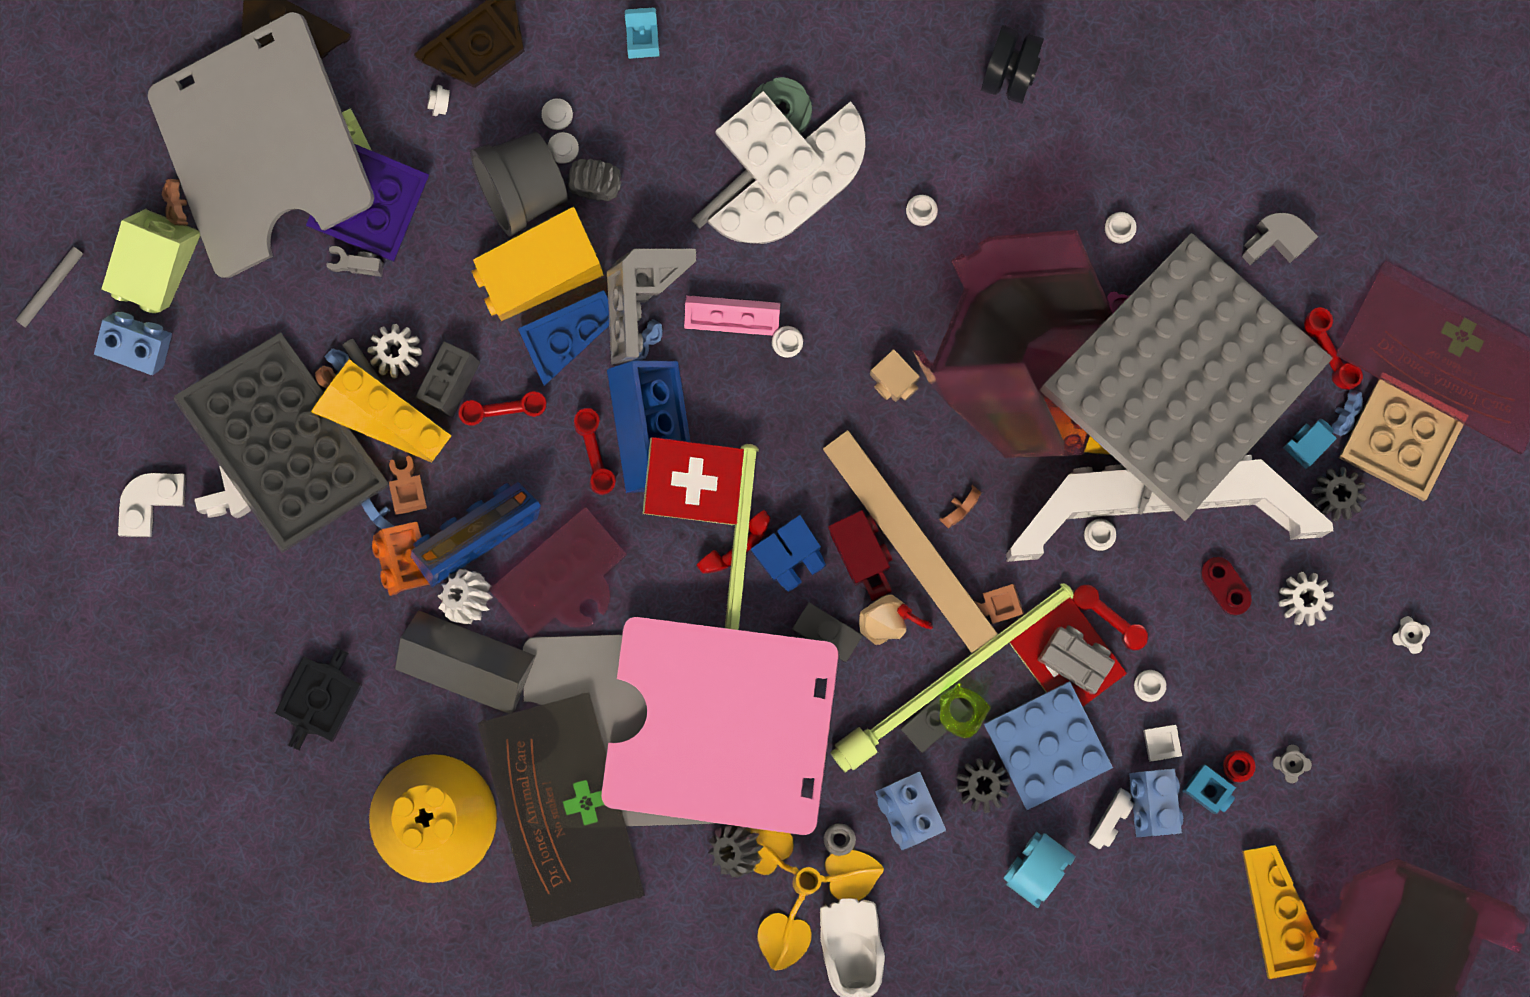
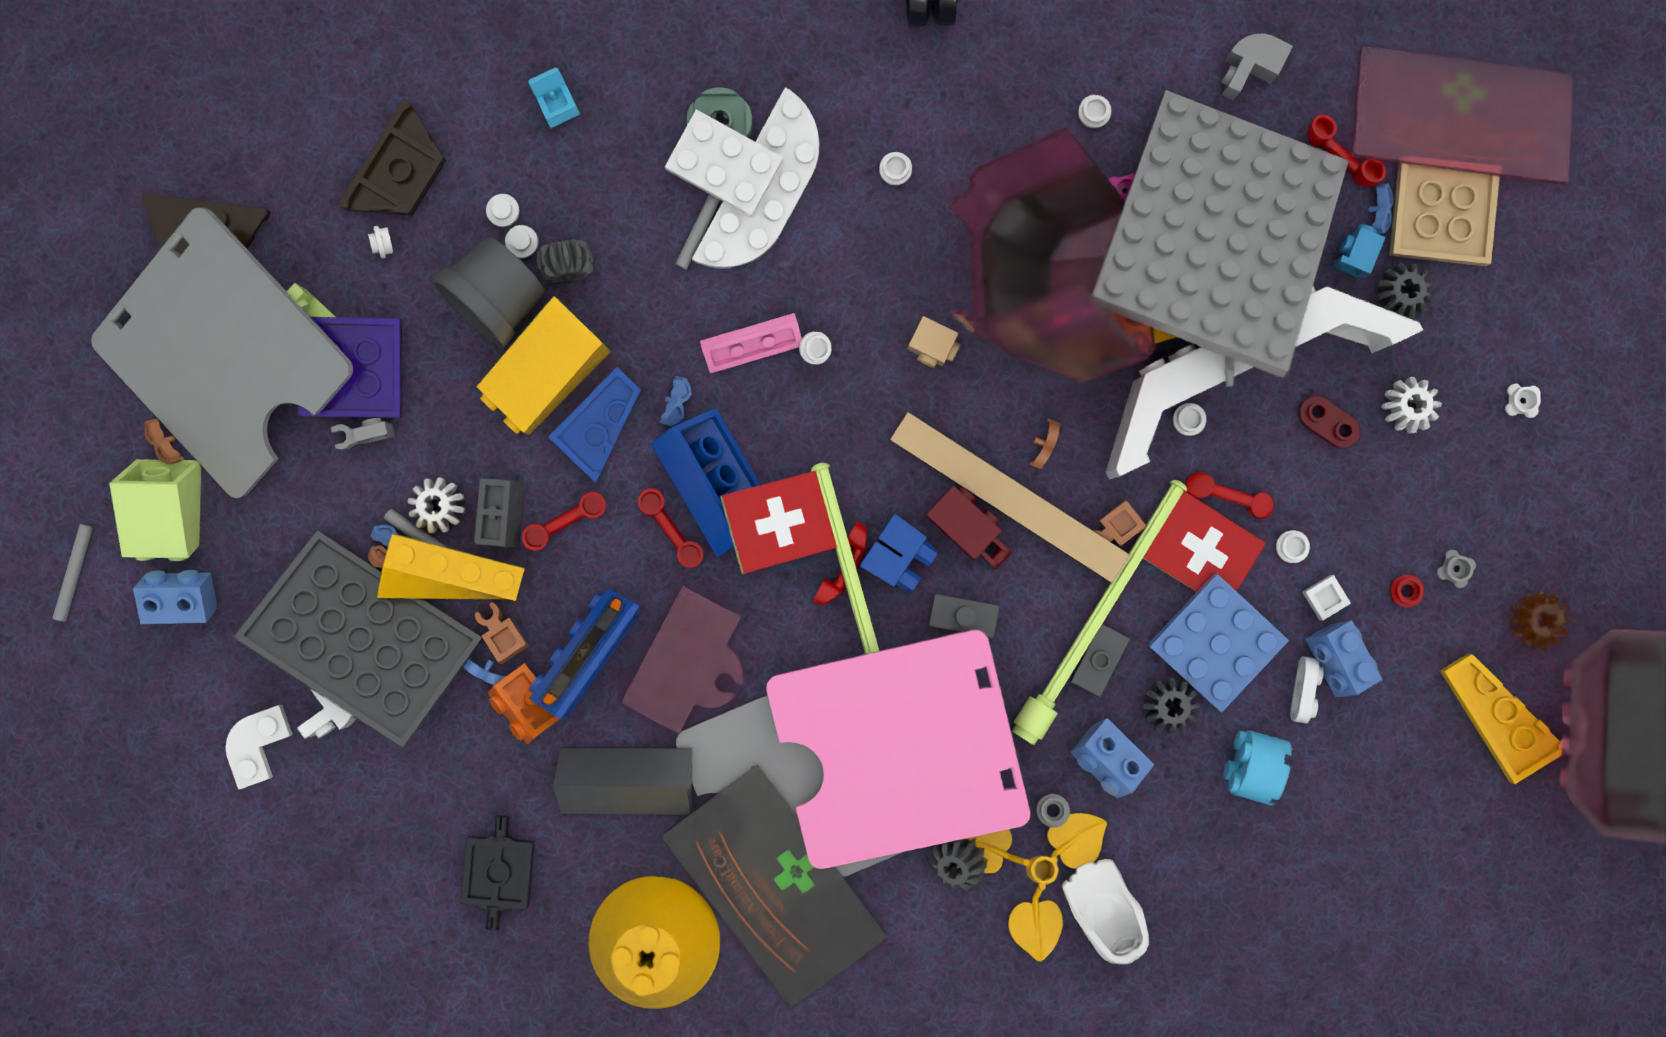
camera: 25 degrees left, 5 degrees up
(465, 596) = (600, 719): white gear -> none
(634, 281) = (644, 344): light grey bracket -> none
(886, 619) = (1019, 582): tan piece -> none
(968, 728) = (1142, 634): clear neon green piece -> none
(1076, 659) = (1216, 550): light grey brick -> none
(1203, 777) = (1375, 623): dark azure brick -> none
(1344, 849) = (1529, 617): none -> clear orange gear

